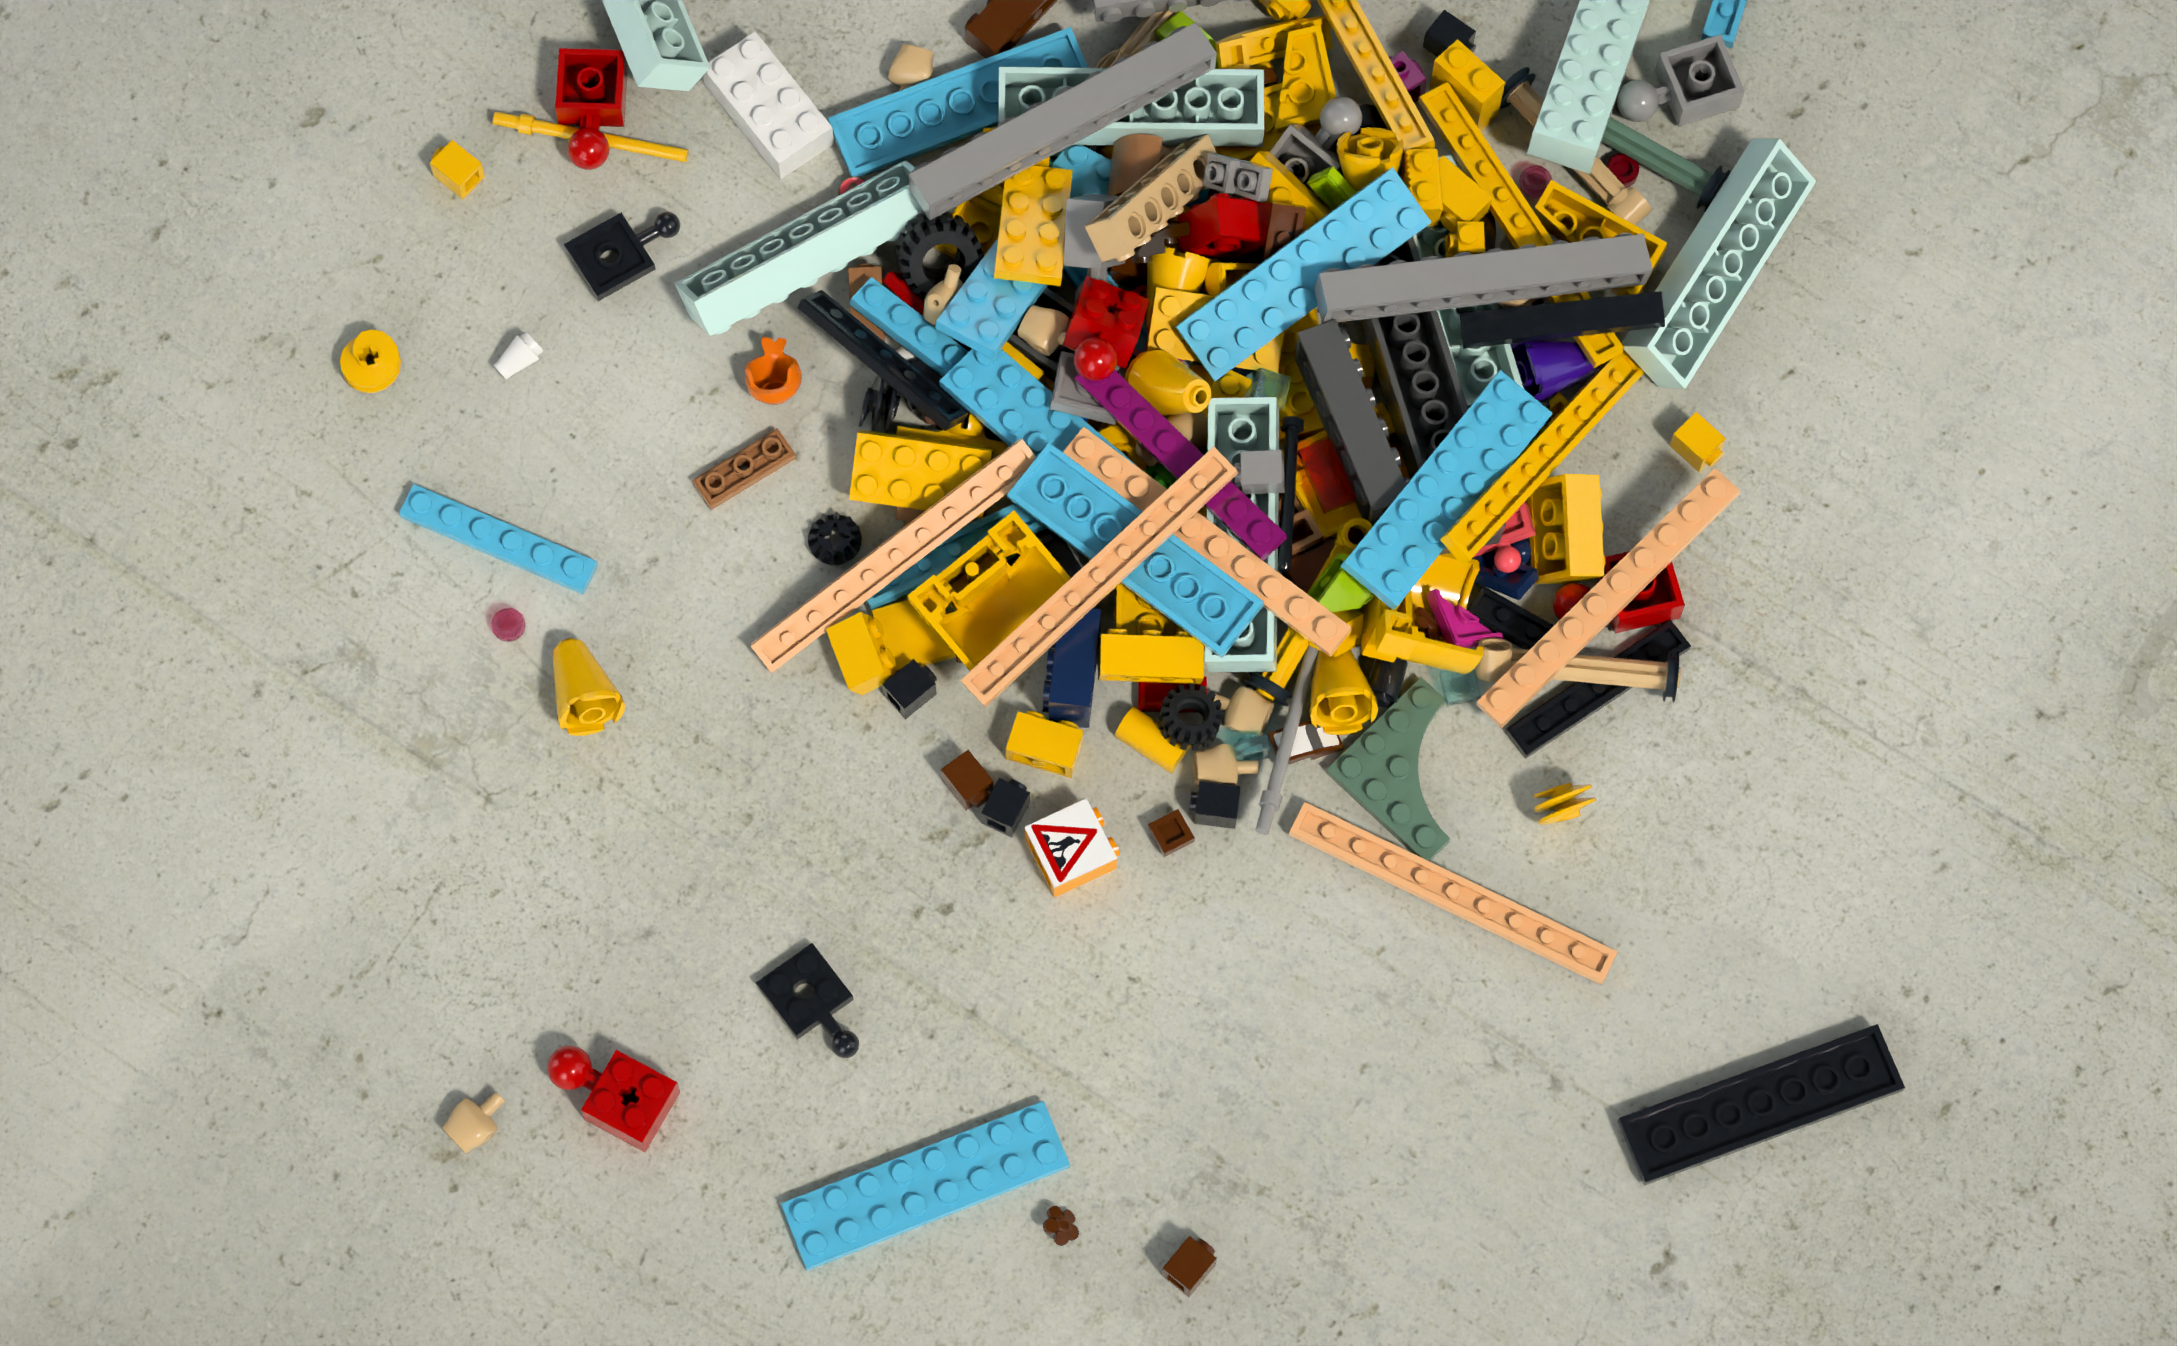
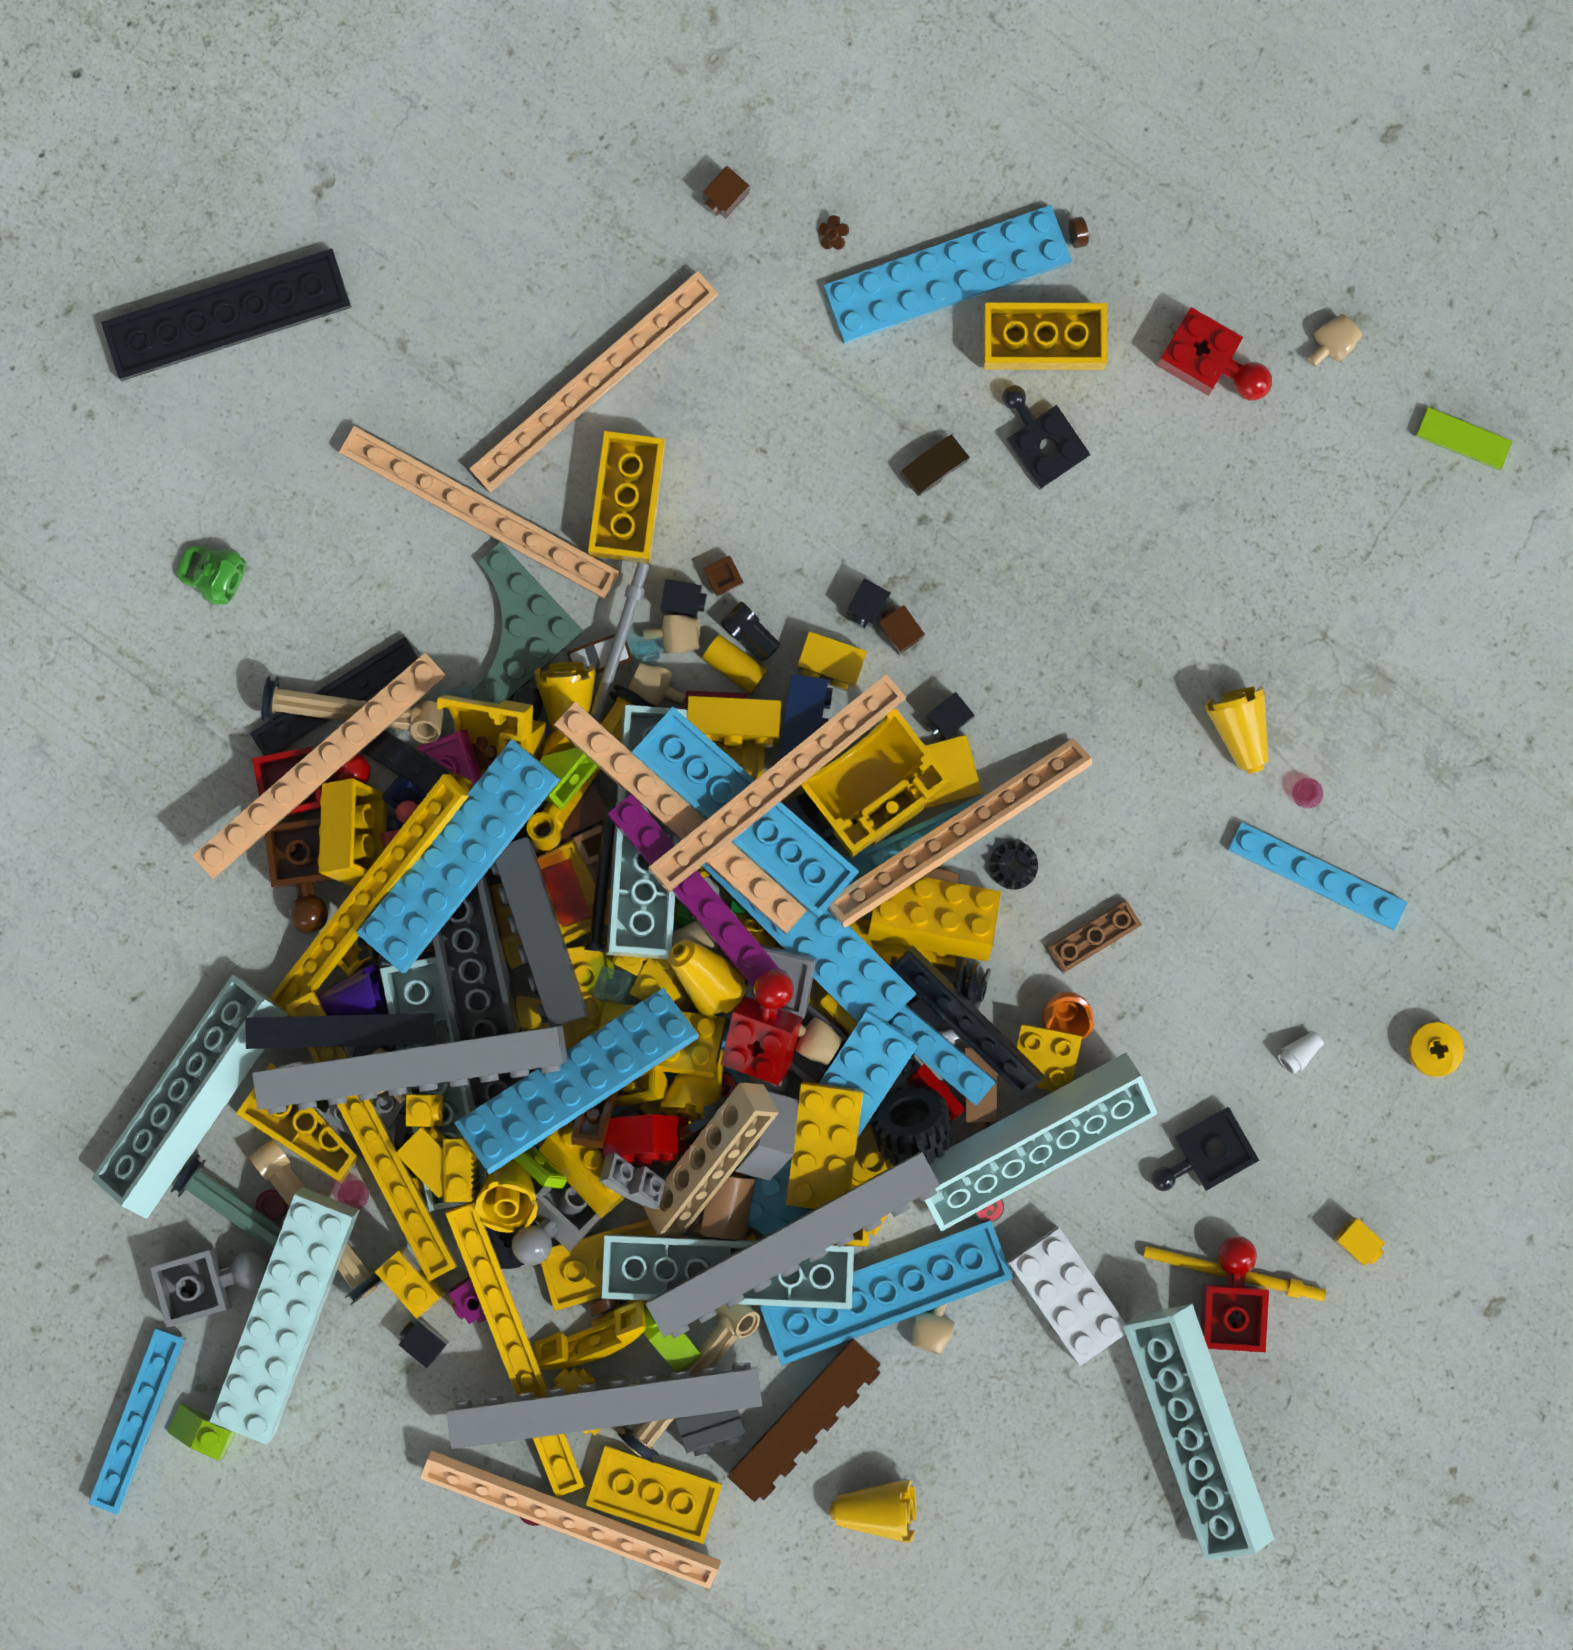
camera: 175 degrees left, 15 degrees up
(324, 1018) = (1464, 438): none -> lime tile
(773, 1235) = (1078, 232): none -> reddish brown tile
(793, 336) = (1052, 1053): none -> yellow hinge
(811, 1108) = (1045, 336): none -> yellow brick
(862, 652) = (992, 749): yellow brick -> none
(934, 963) = (934, 465): none -> dark brown slope
(942, 294) = (910, 1079): tan piece -> none
(1071, 847) = (811, 564): piece -> none
(1144, 778) = (745, 627): none -> black piece
(1196, 701) = (713, 660): black tyre -> none
(1261, 472) = (627, 874): light grey brick -> none
(1285, 909) = (627, 497): none -> yellow brick
(1305, 79) = (560, 1297): yellow wing -> none
(1329, 1044) = (594, 381): none -> light nougat plate
(1563, 802) = (375, 585): yellow piece -> none
(1628, 496) = (307, 912): none -> reddish brown brick
(1698, 442) = (224, 925): yellow brick -> none
(1746, 814) = (215, 574): none -> bright green piece

